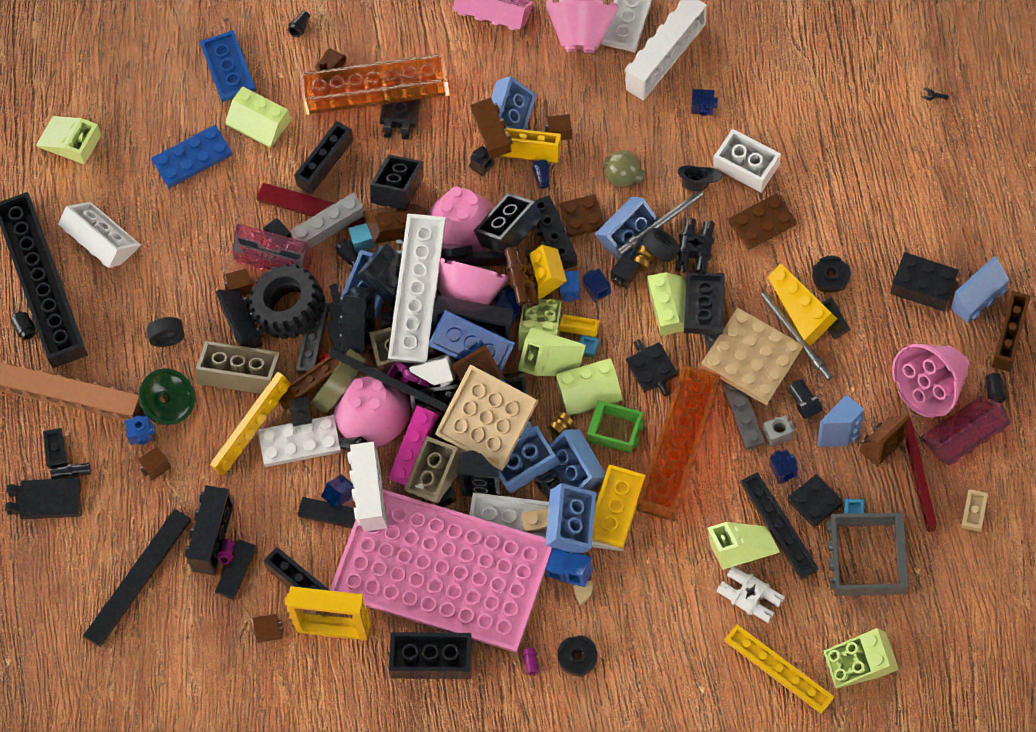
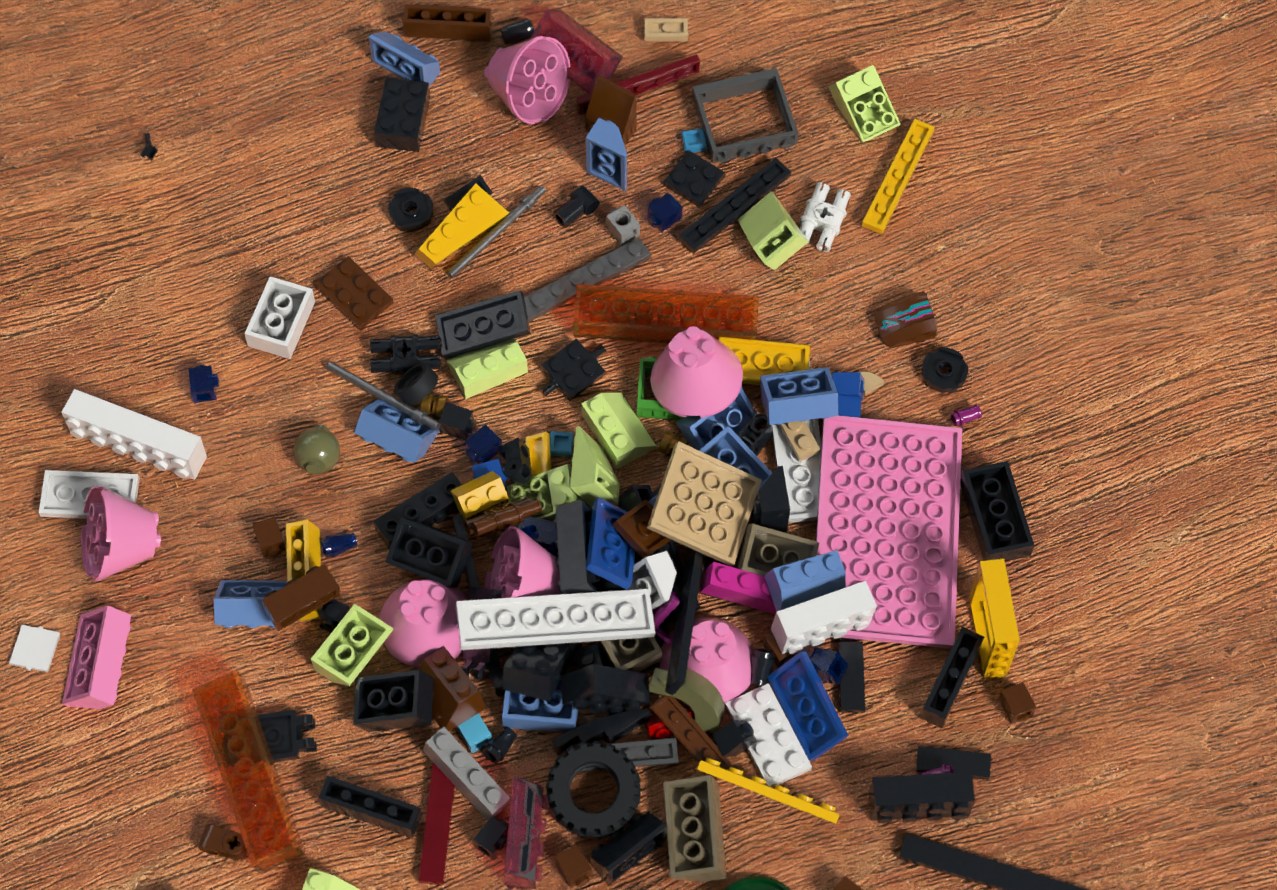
camera: 110 degrees left, 0 degrees up
(309, 468) = (807, 706): none -> blue plate
(400, 481) = (806, 579): none -> medium blue slope
(451, 163) = (350, 646): none -> yellowish green slope
(574, 304) = (517, 461): none -> black leg
(581, 215) = (385, 487): reddish brown plate -> none
(610, 446) = (696, 375): none -> bright pink cone
(633, 636) = (906, 320): none -> reddish brown slope
(698, 178) = (311, 363): black piece -> none
(752, 356) = (539, 263): tan plate -> none

